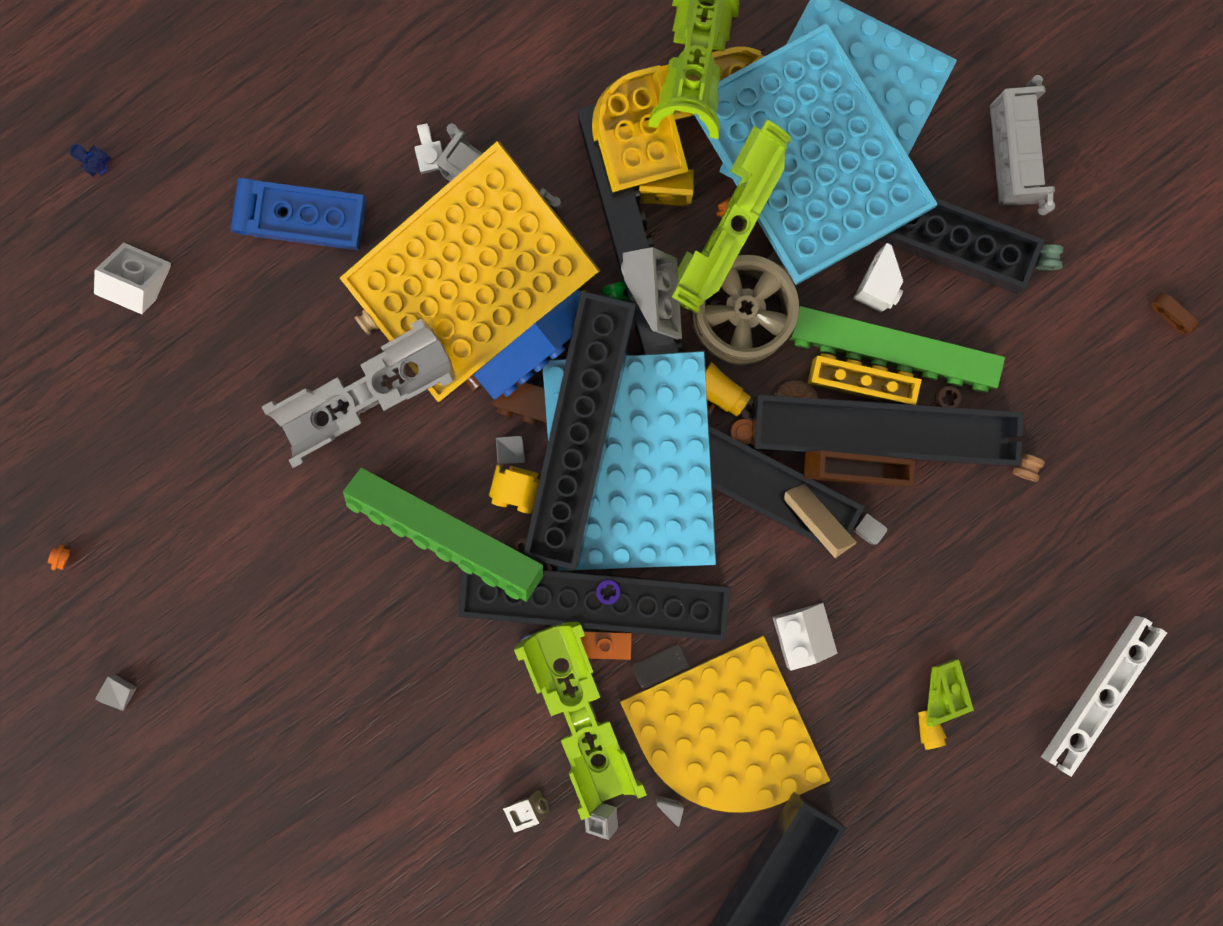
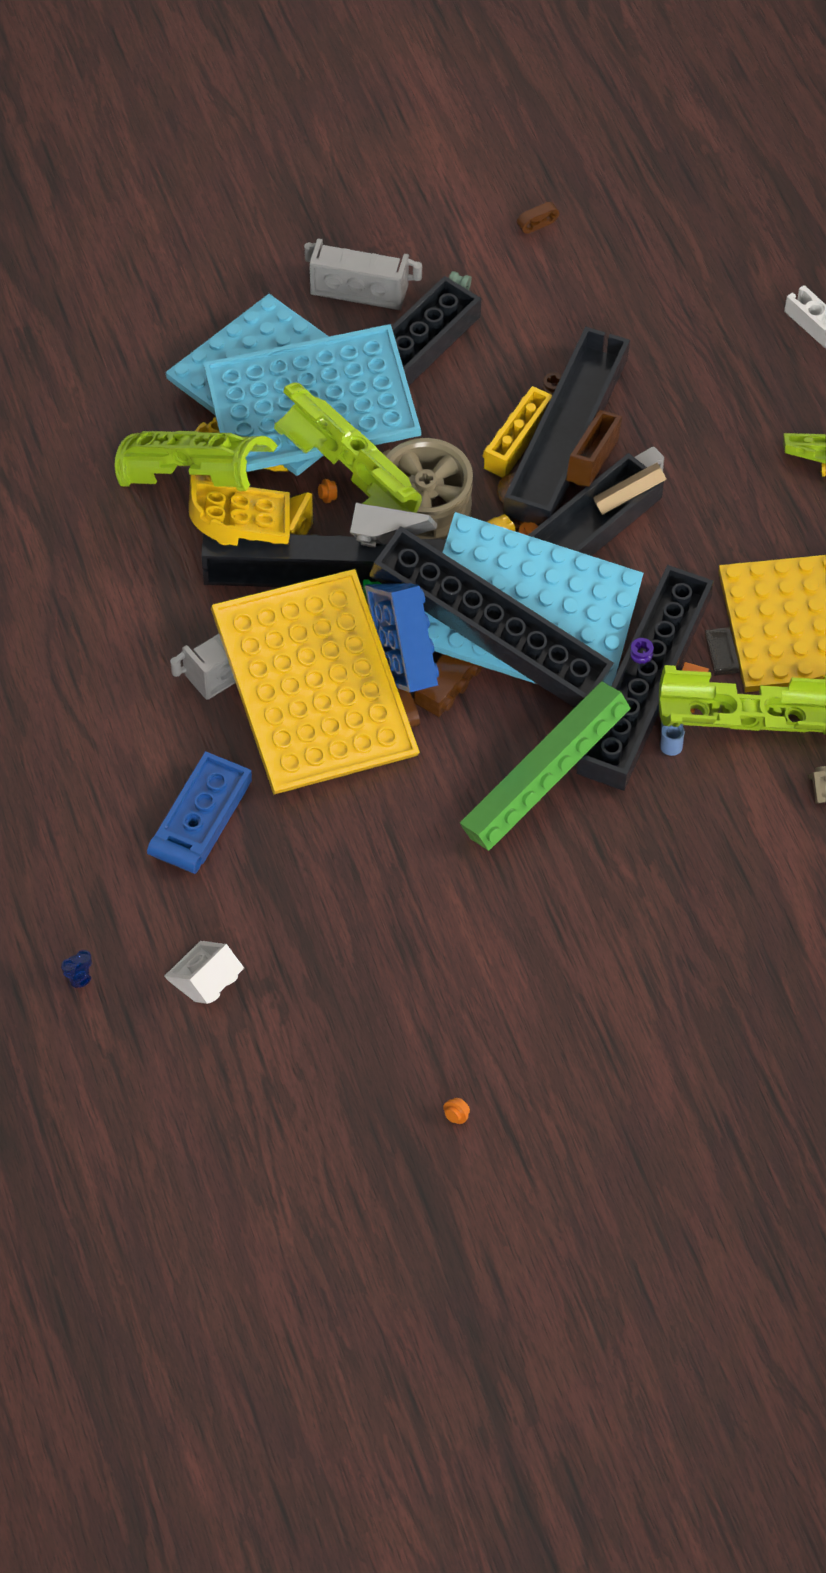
camera: 75 degrees left, 30 degrees down
(116, 692) = (607, 1098): light grey slope -> none
(300, 411) = (395, 738): light grey piece -> none
(366, 322) = (323, 789): tan bush -> none
(429, 151) = (184, 702): white plate -> none
(510, 450) = (483, 710): light grey slope -> none
(514, 487) = (522, 704): yellow brick -> none
(805, 636) = (728, 539): white slope -> none
(881, 282) = (435, 395): white slope -> none
(897, 349) = (504, 395): bright green brick -> none
(1029, 467) = (637, 343): medium nougat wheel -> none

